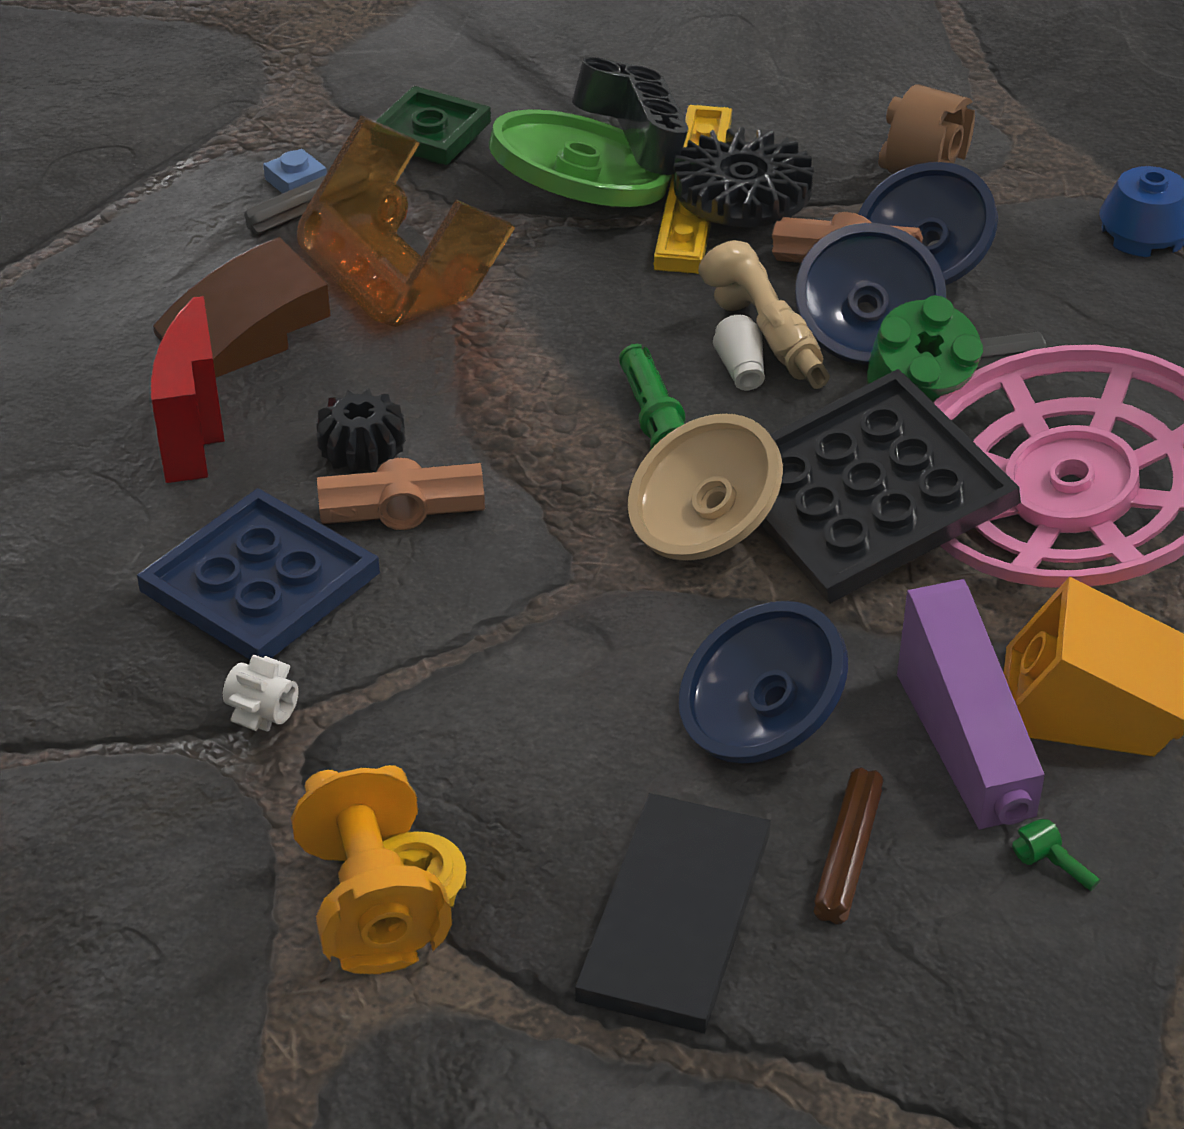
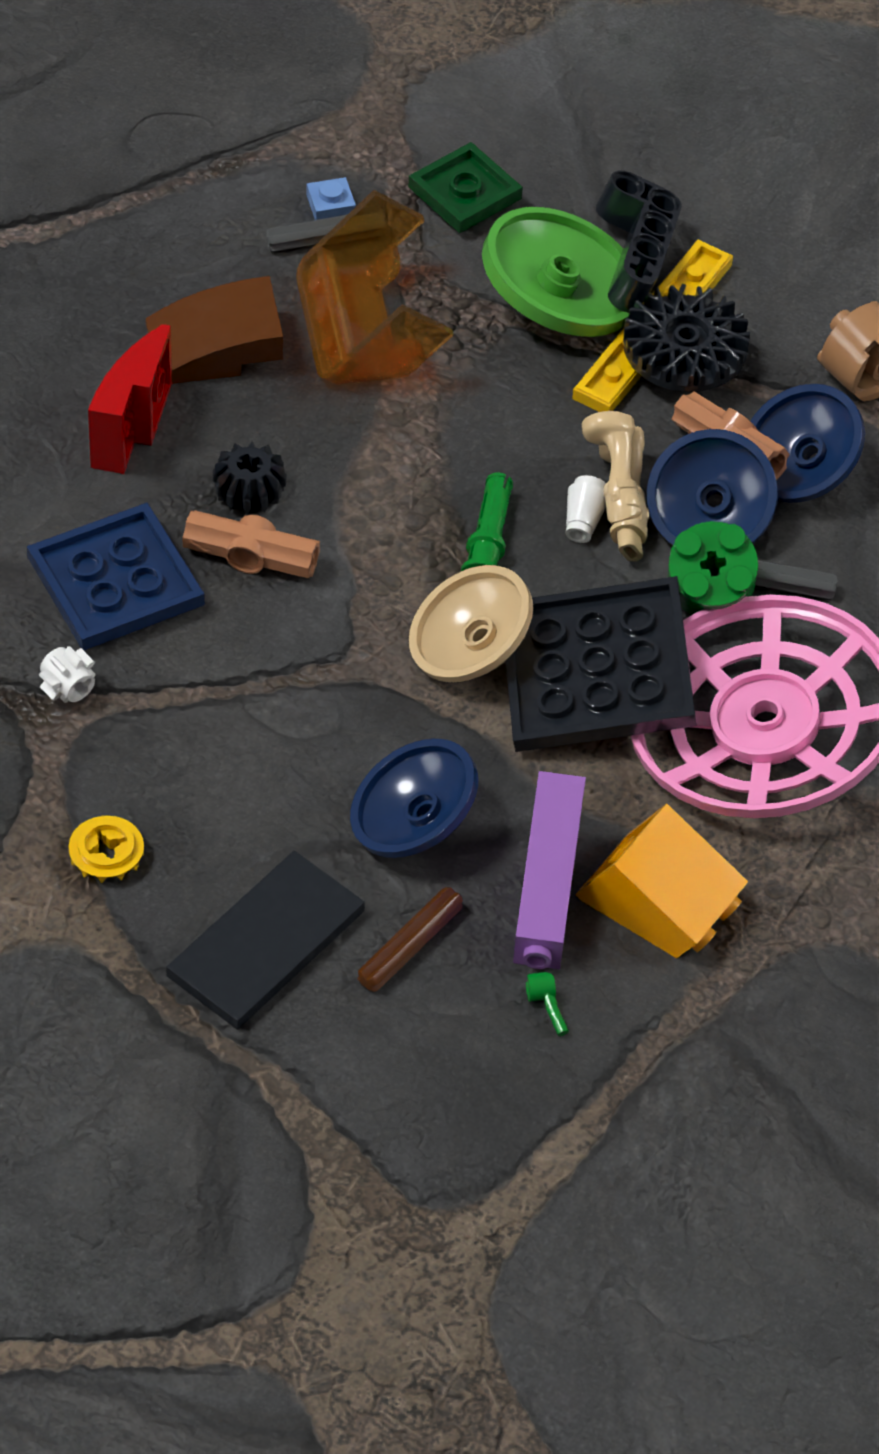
camera: 20 degrees right, 10 degrees up
(380, 906) = (62, 866): light orange piece -> none

